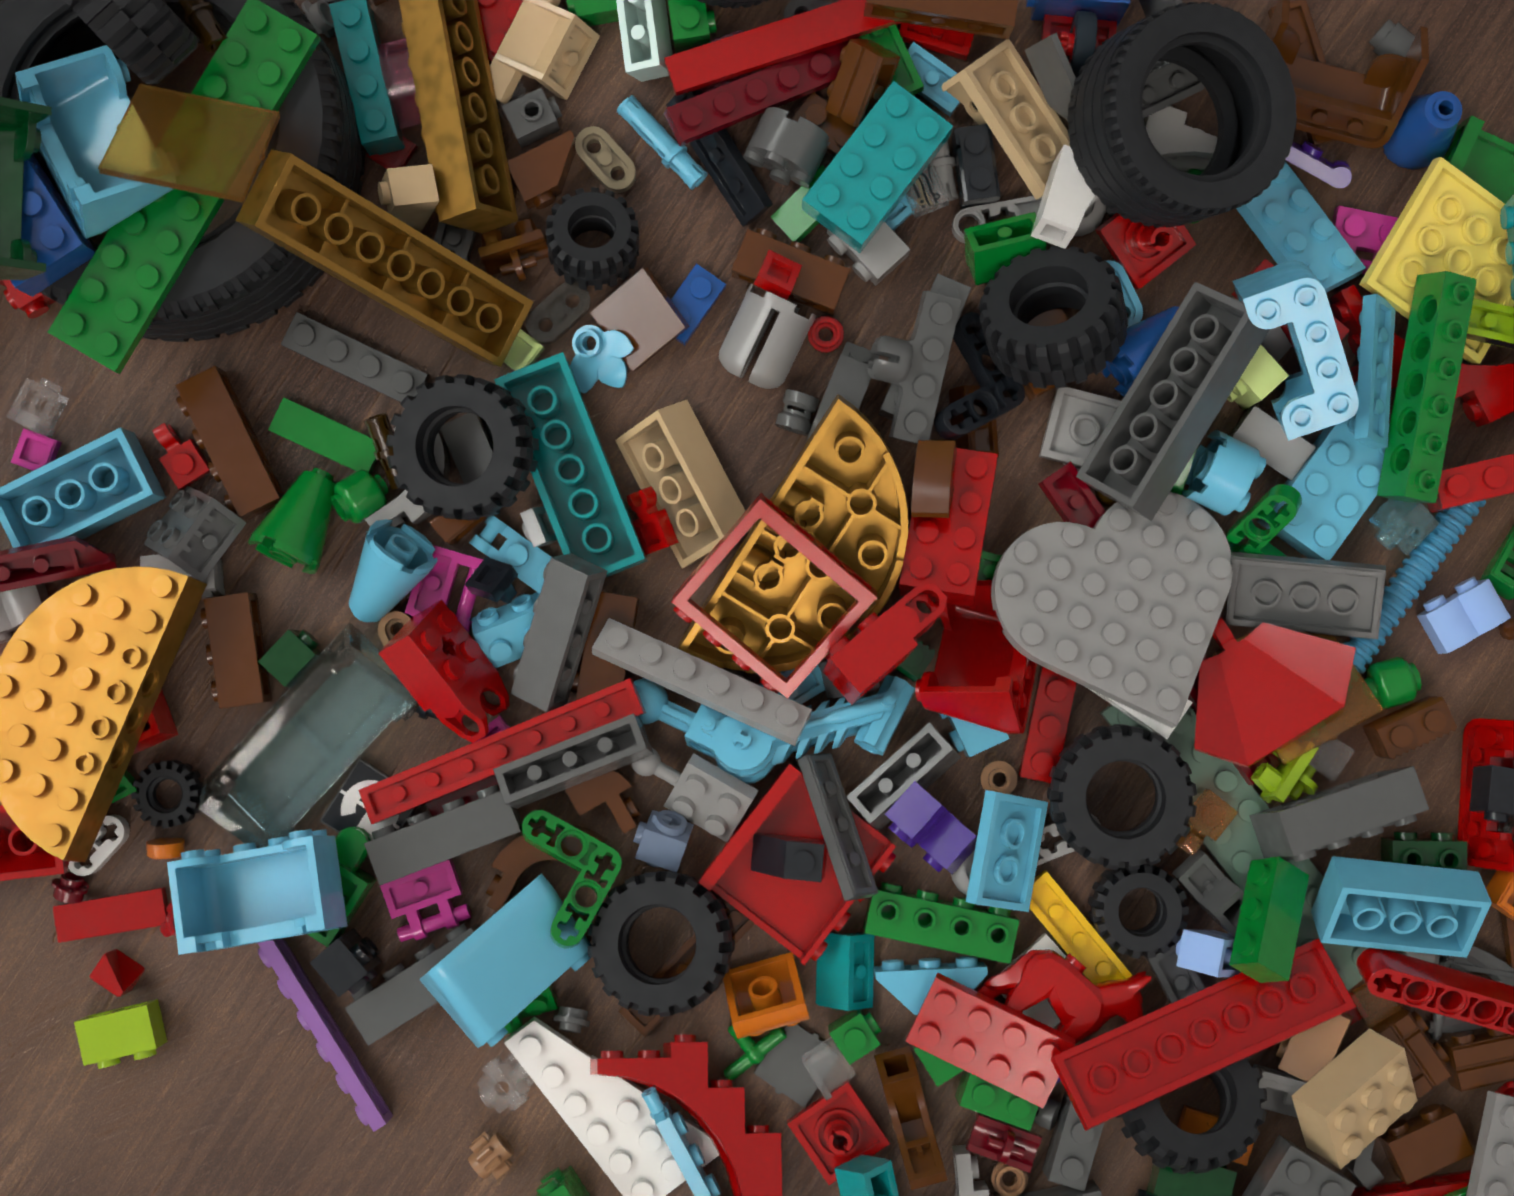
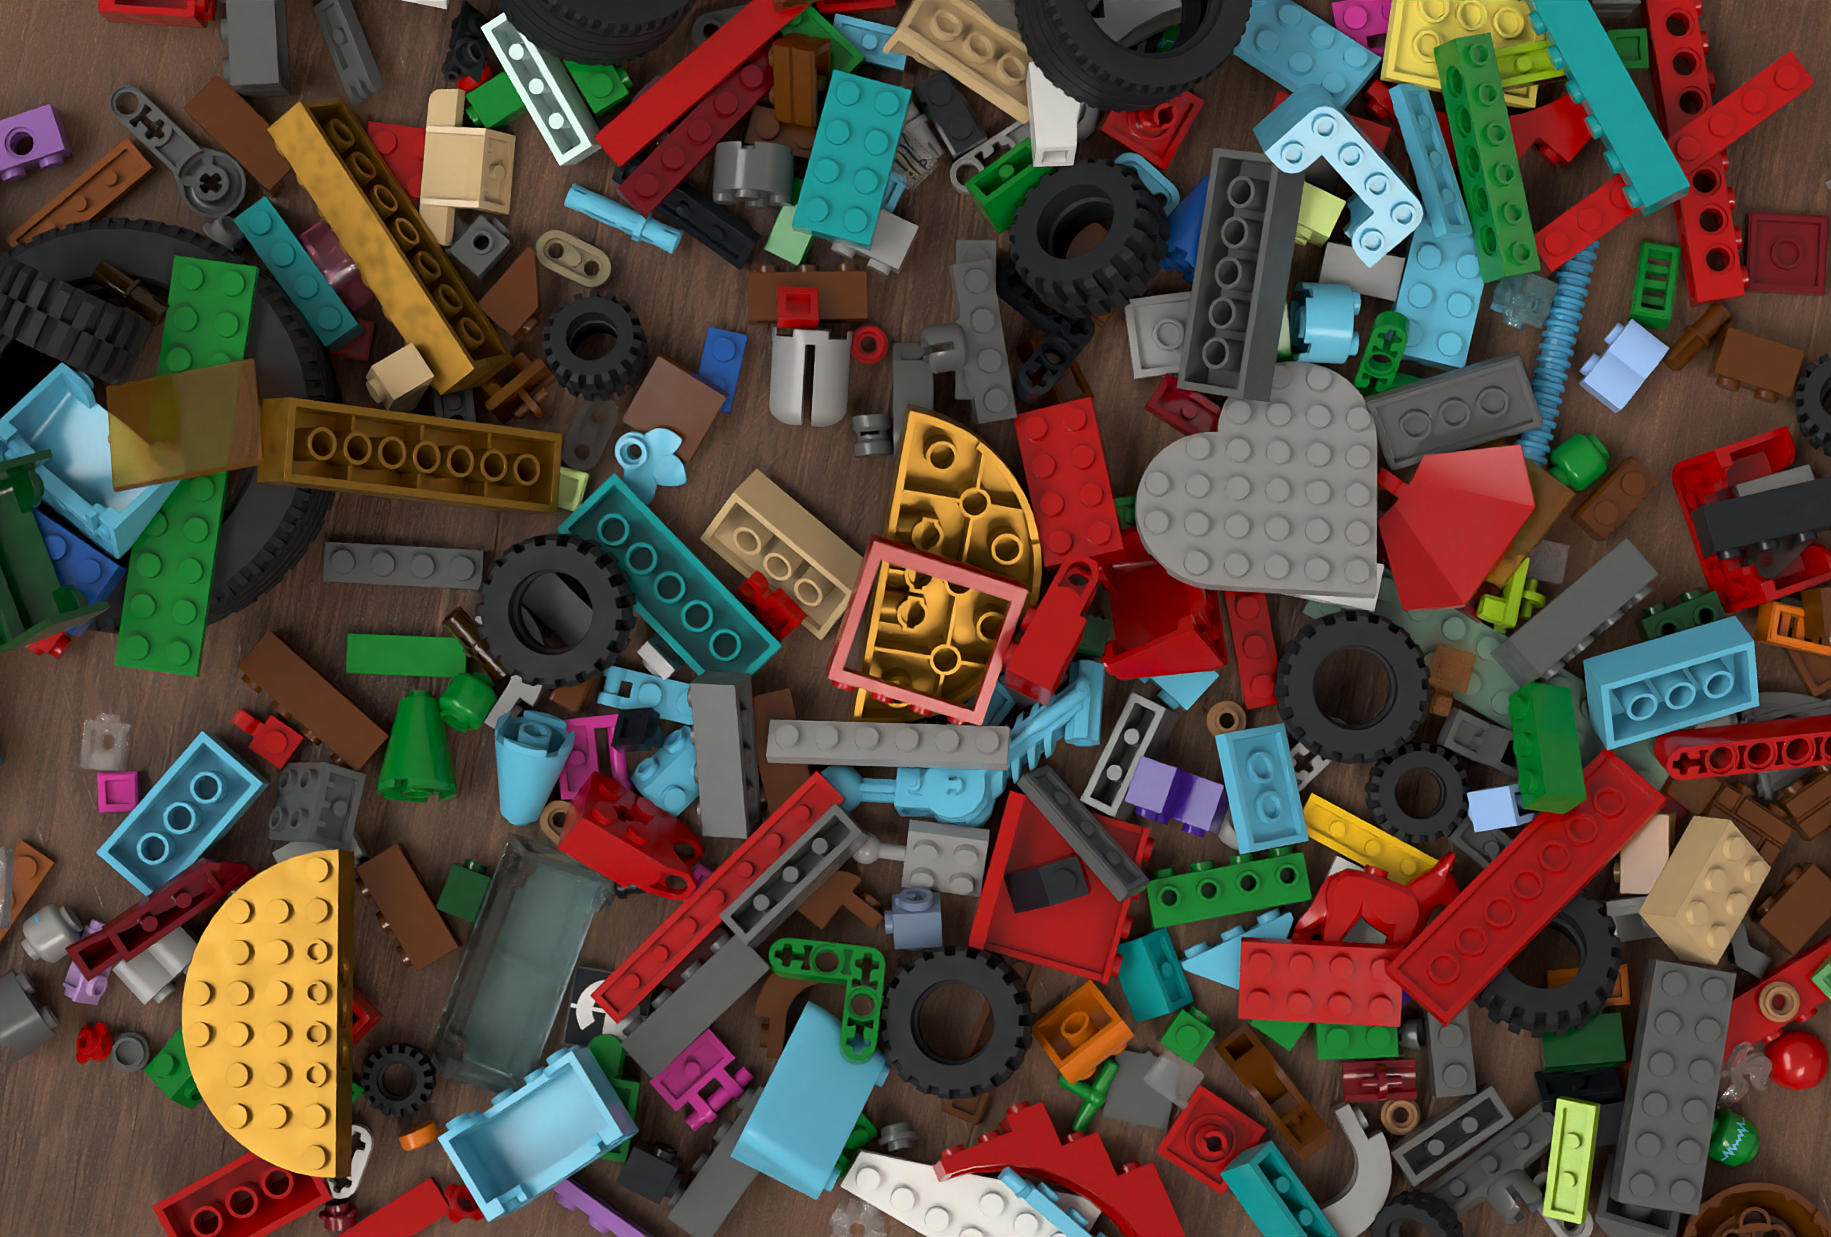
camera: 25 degrees left, 0 degrees up
(933, 479) = (1036, 449): reddish brown slope -> none

